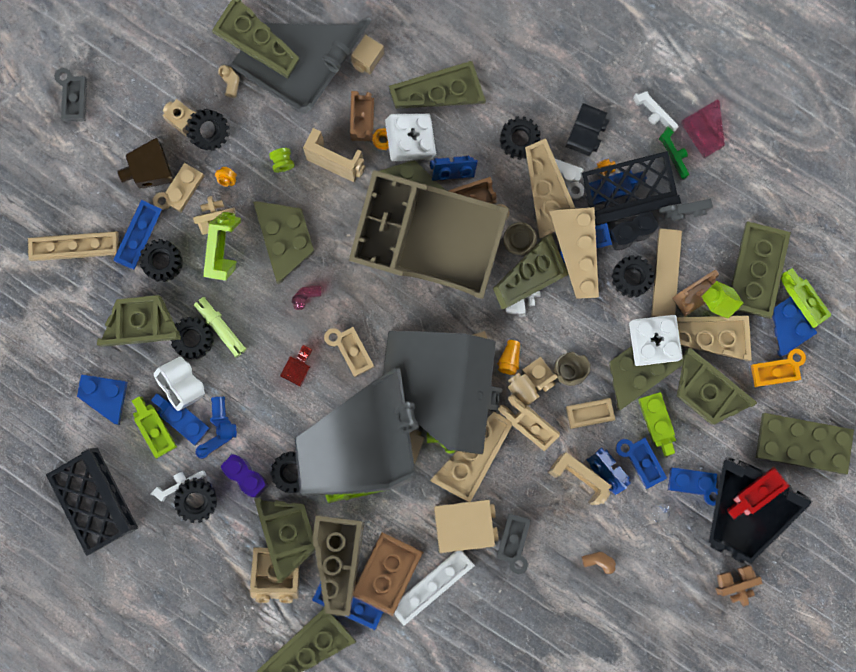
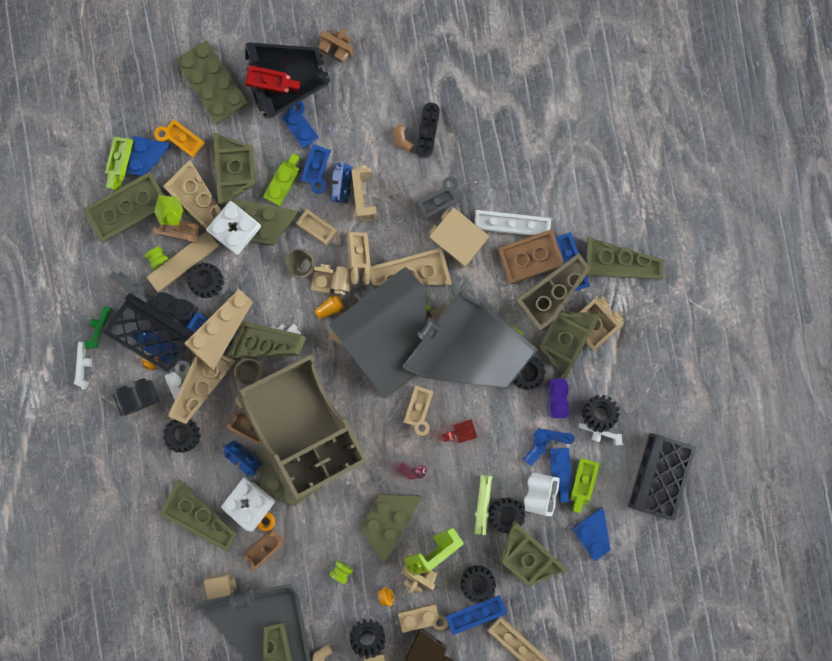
camera: 135 degrees left, 5 degrees up
(331, 161) = (317, 554): tan panel -> none
(590, 610) = (435, 117): none -> black beam
(691, 253) = (156, 257): none -> lime wheel
(706, 129) = (63, 323): clear pink wing -> none

